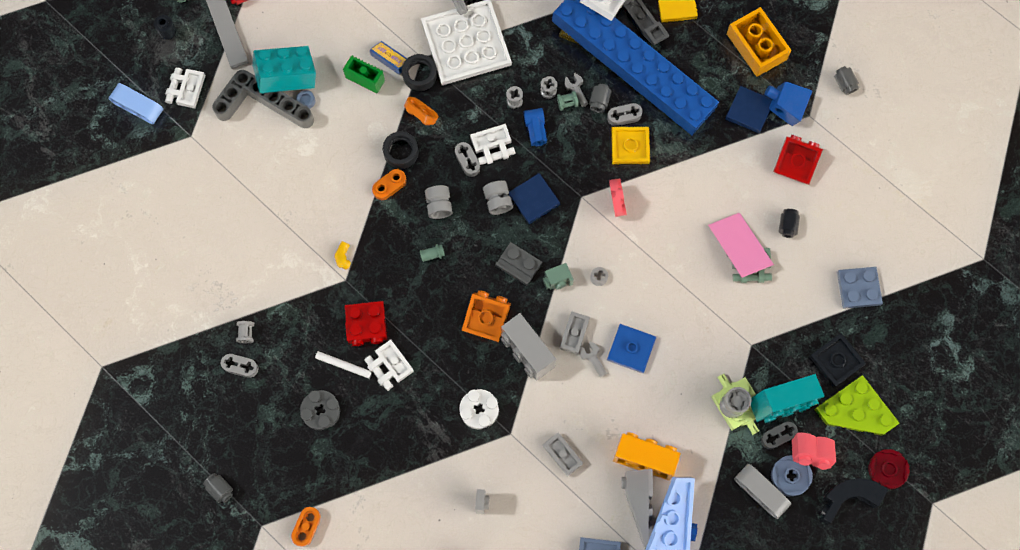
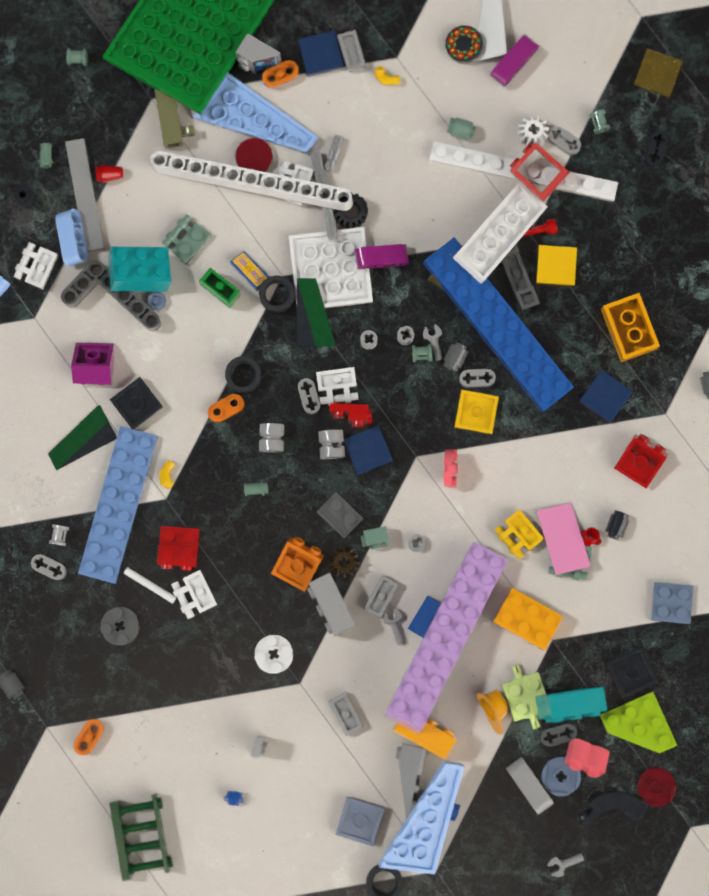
camera: 10 degrees right, 10 degrees up
(215, 55) = (71, 237): none -> light blue beam
(253, 166) = (92, 363): none -> magenta slope
(258, 236) = (86, 437): none -> dark green sticker
(299, 294) = (118, 505): none -> medium blue plate
(301, 194) = (136, 403): none -> black plate
(329, 43) = (190, 243): none -> sand green plate
(421, 111) = (271, 336): orange plate -> none
(456, 87) = (312, 320): none -> dark green sticker
(512, 20) = (381, 256): none -> magenta beam
(515, 162) = (357, 413): none -> red plate
(535, 122) = (384, 375): blue piece -> none
(537, 302) = (348, 566): none -> dark brown gear
(647, 358) = (445, 638): none -> lavender brick
(700, 245) = (523, 531): none -> yellow plate
(709, 420) = (494, 708): none -> light orange piece
(723, 327) = (527, 619): none -> light orange brick
(735, 402) = (520, 698): light grey wheel -> none
(766, 238) = (594, 534): none -> red plate
(788, 101) = (646, 398): blue torso -> none

